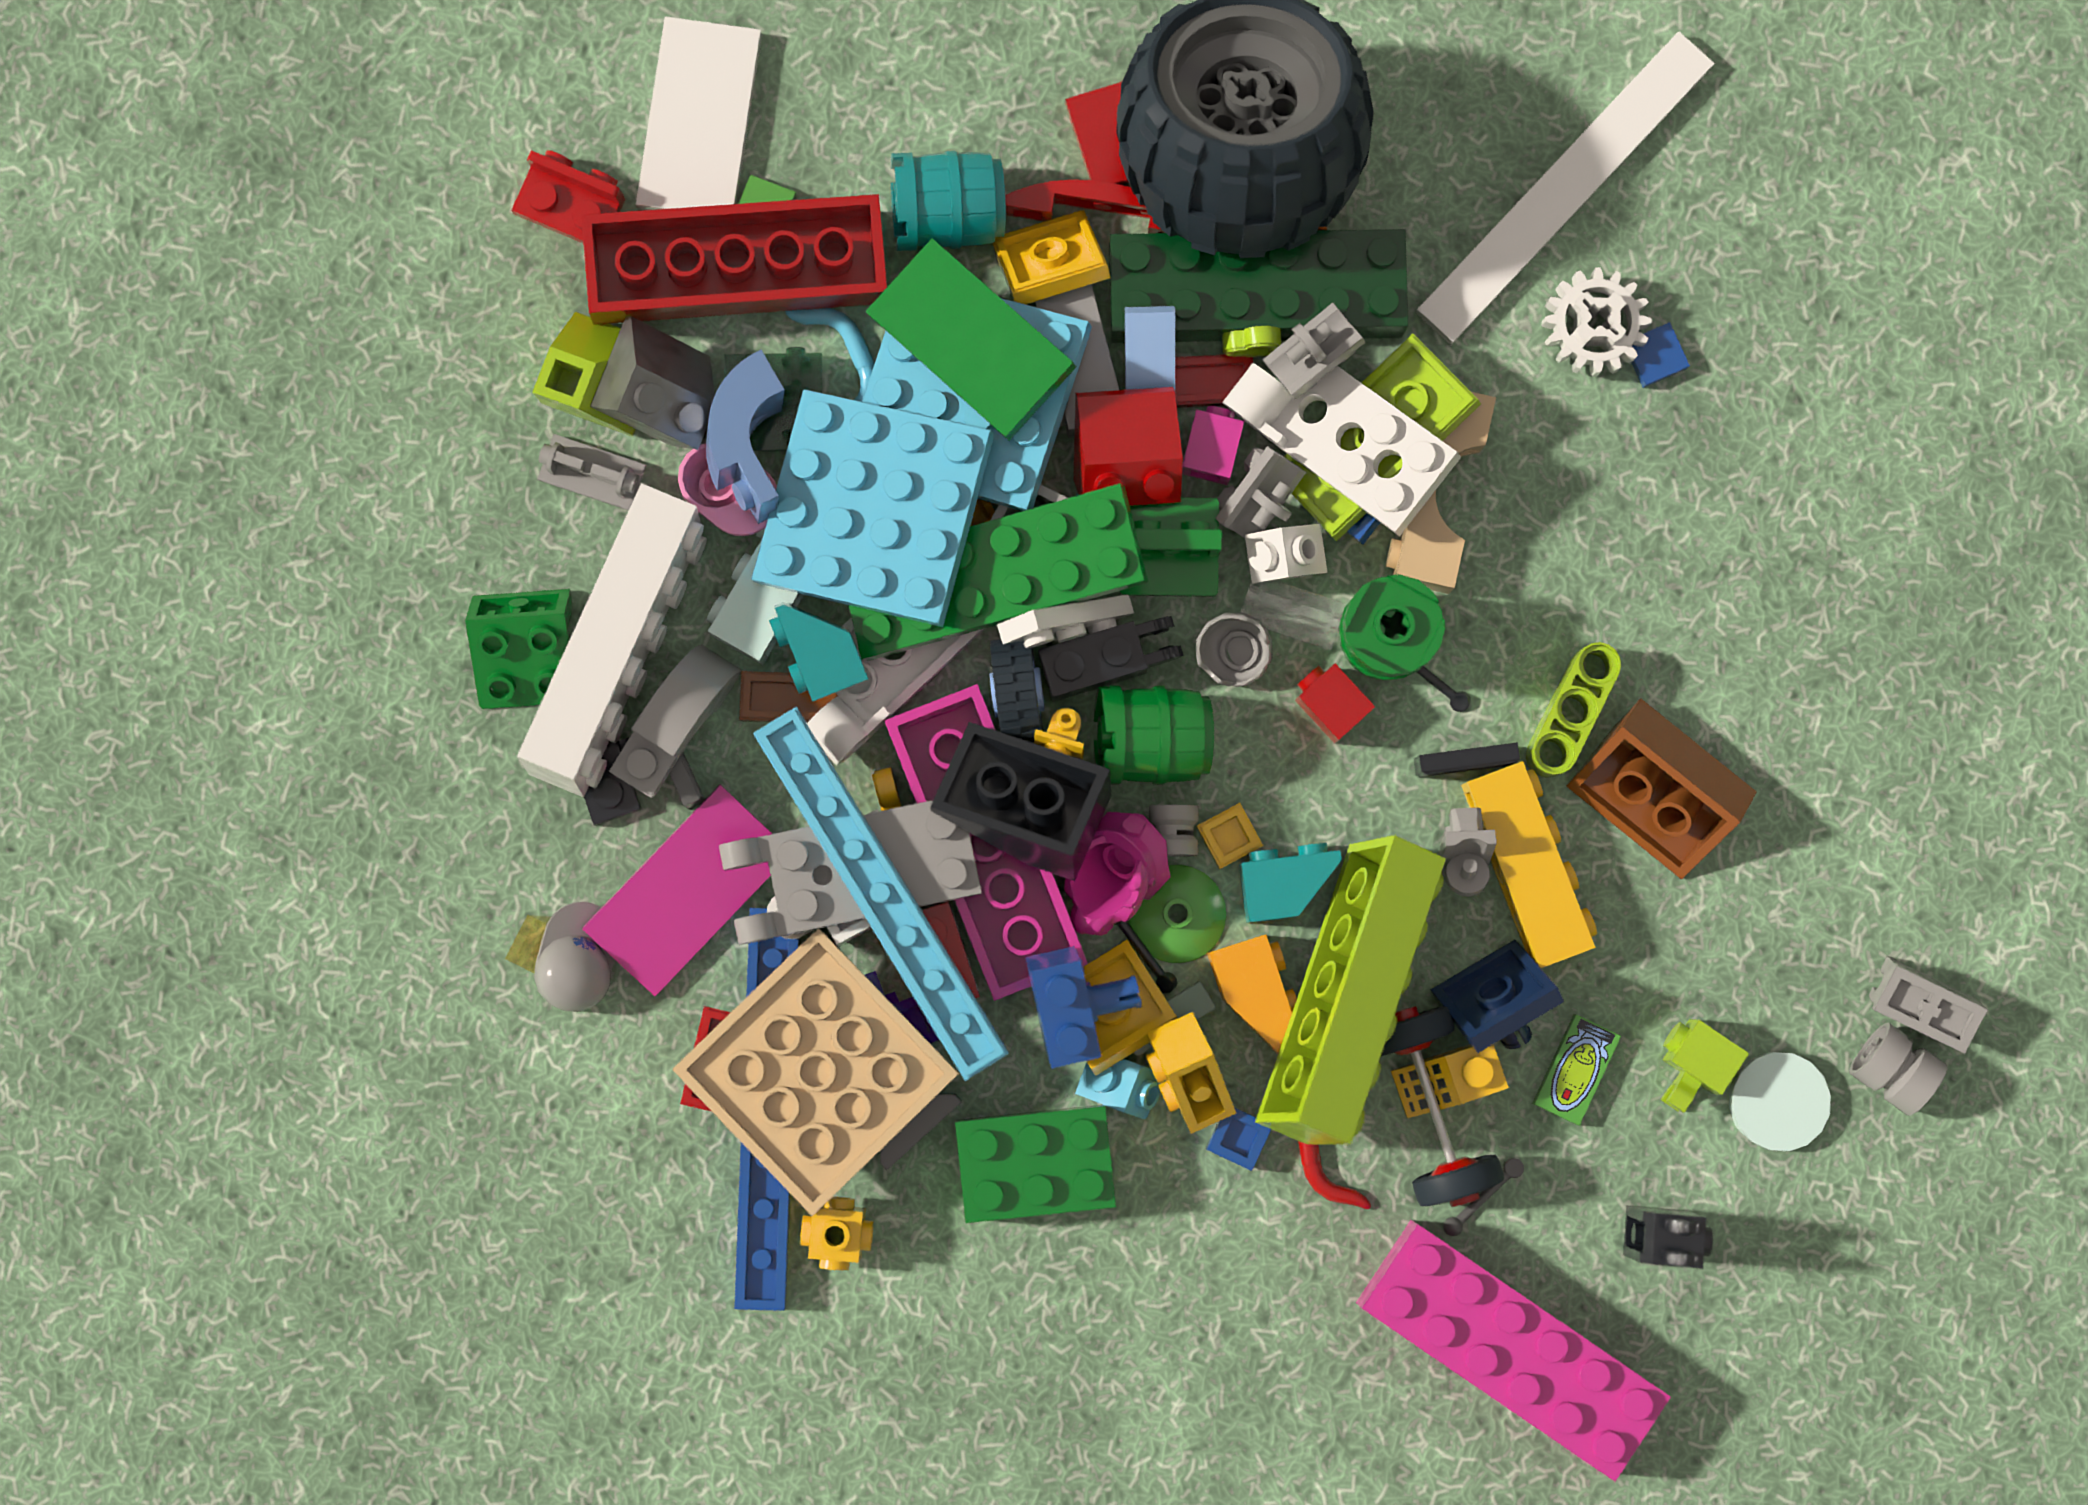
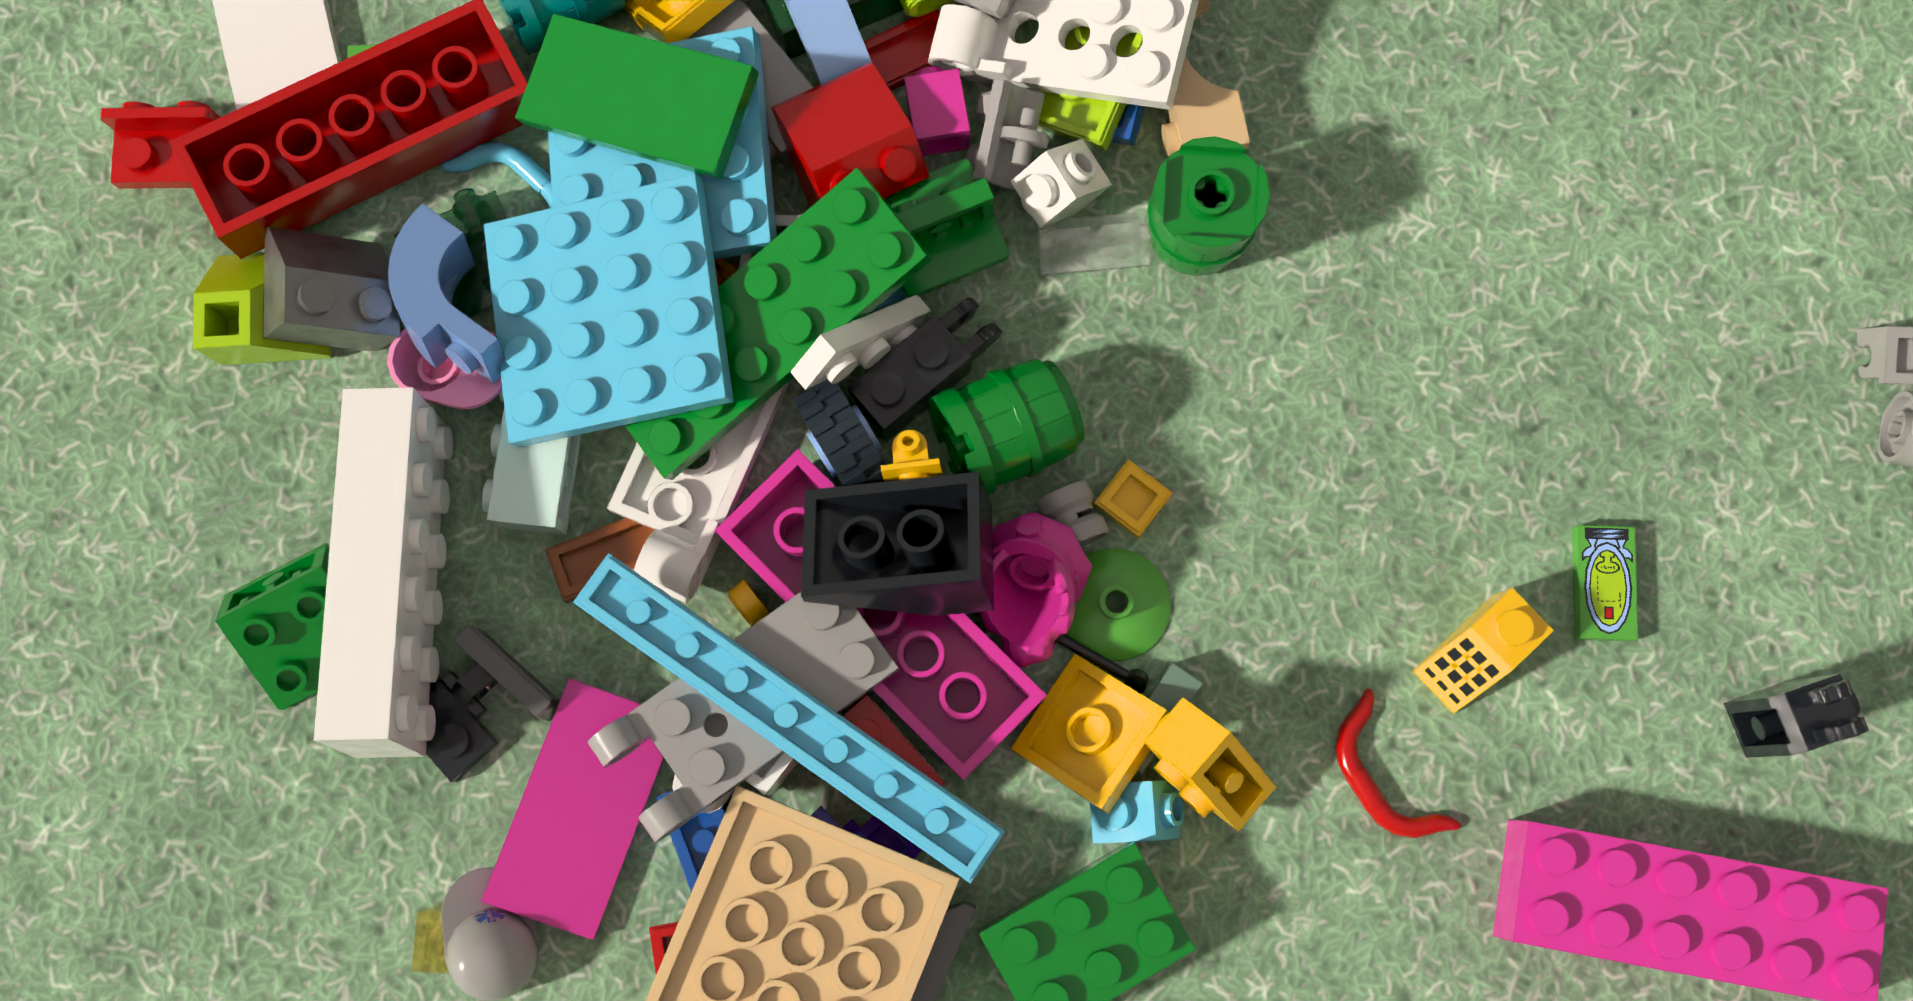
camera: 20 degrees left, 5 degrees down
(590, 471) = (291, 412): light grey hinge -> none
(673, 717) = (483, 627): light grey arch -> none
(822, 651) = (615, 485): teal slope -> none
(1070, 1005) = (1050, 747): blue brick -> none
(1239, 1139) = (1291, 814): blue plate -> none
(1247, 645) = (1061, 294): light grey hair -> none
(1253, 987) = (1236, 649): light orange slope -> none
(1285, 885) = (1215, 523): teal slope -> none
(1333, 701) = (1177, 313): red brick -> none
(1351, 991) = (1344, 603): lime brick -> none
(1454, 1225) = (1588, 717): dark grey hinge -> none
(1458, 700) = (1303, 260): black hinge -> none
(1459, 1178) = (1543, 754): black axle -> none
(1466, 760) = (1341, 313): black tile -> none
(1467, 852) = (1388, 403): light grey hips -> none
(1498, 997) = (1494, 540): dark blue tile -> none
(1529, 865) = (1458, 393): yellow brick -> none
(1590, 693) = (1438, 196): lime beam -> none
(1662, 789) = (1555, 258): dark orange slope -> none
(1702, 1059) = (1732, 515): lime brick -> none
(1779, 1101) = (1828, 524): light aqua tile -> none

